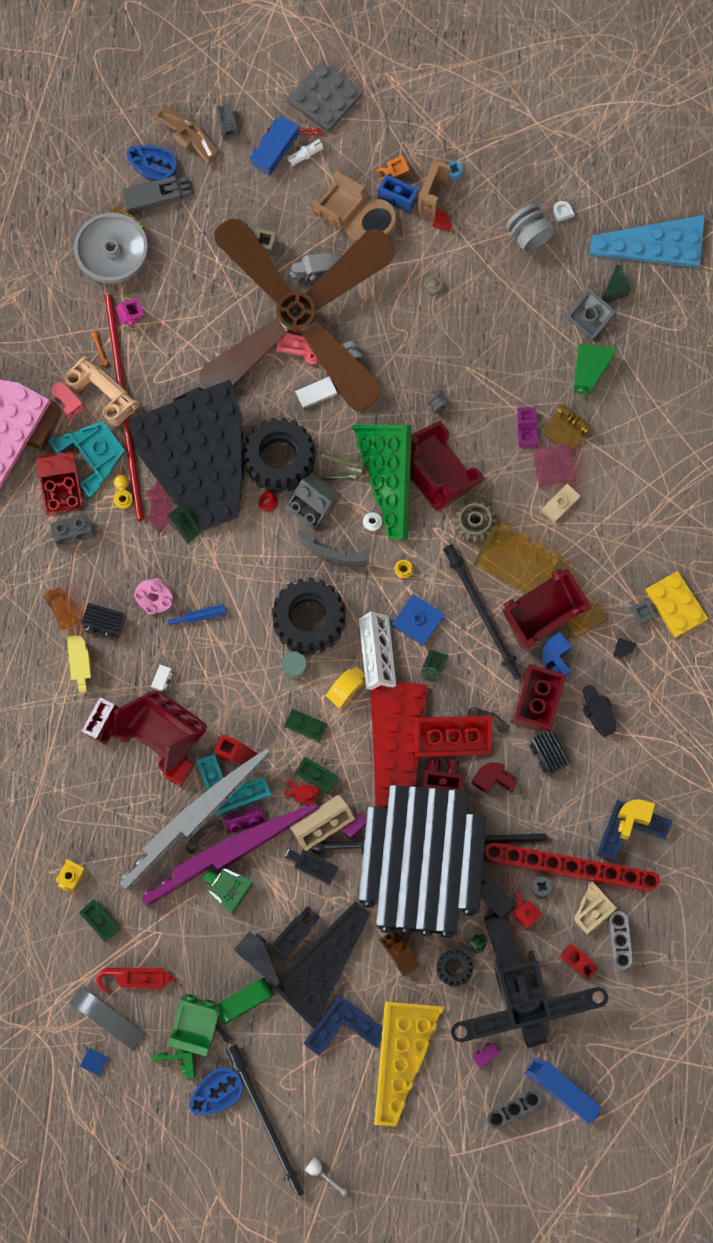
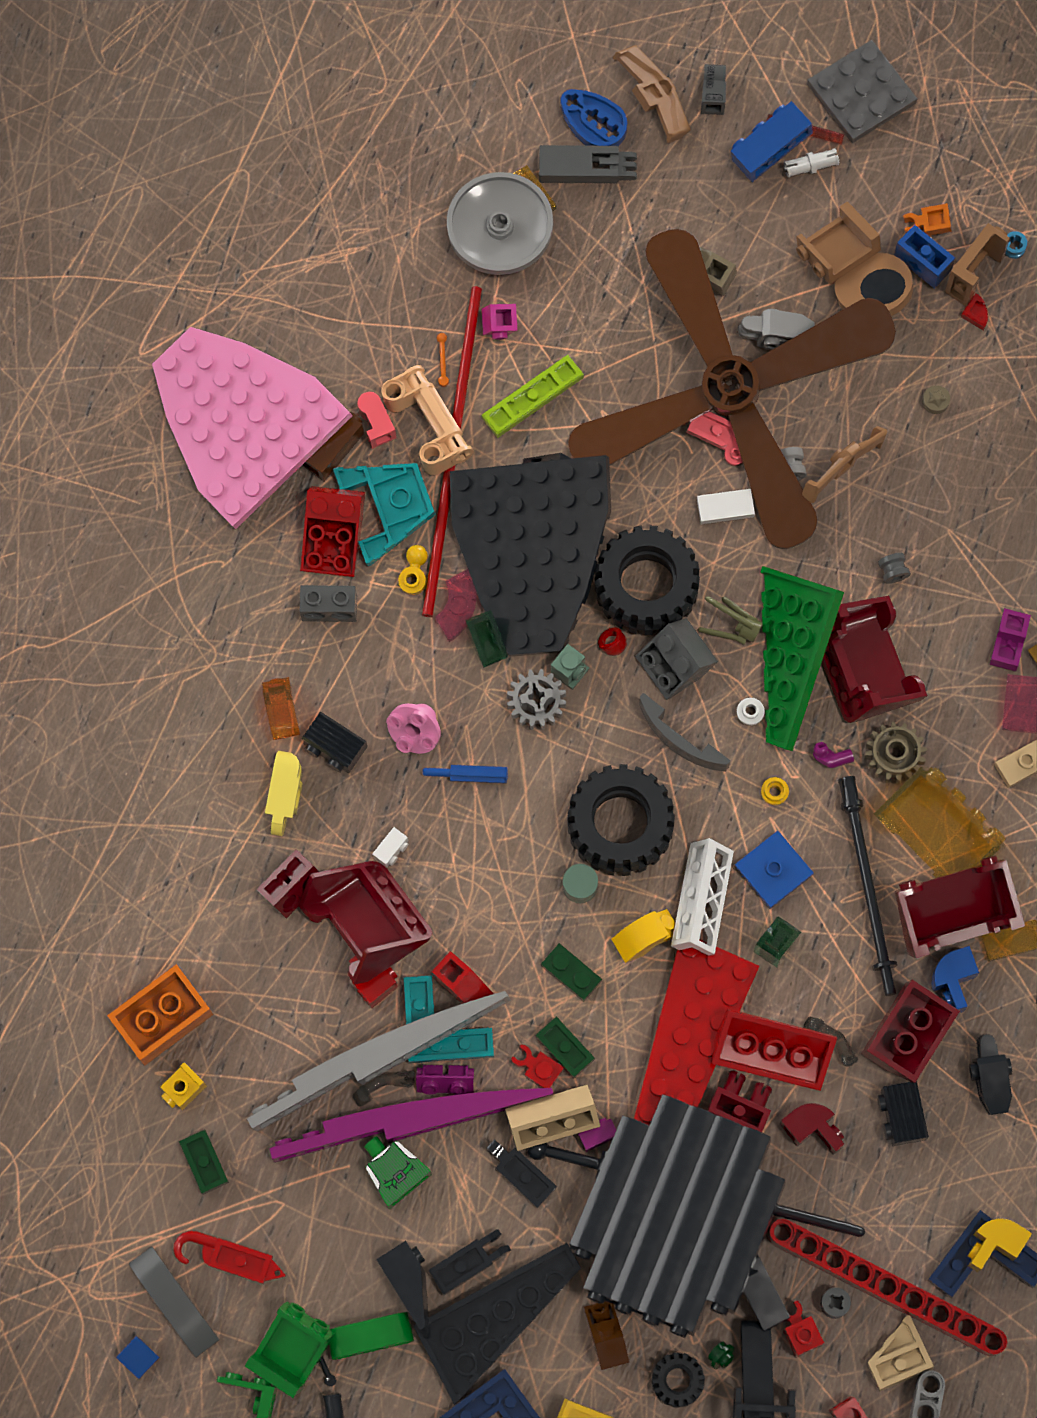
camera: 20 degrees right, 0 degrees up
(41, 832) = (160, 1015): none -> orange brick
(166, 356) = (532, 396): none -> lime plate
(235, 549) = (526, 701): none -> light grey gear
(244, 526) = (569, 667): none -> sand green brick
(384, 341) = (842, 461): none -> medium nougat plate
(433, 537) = (831, 759): none -> magenta arm

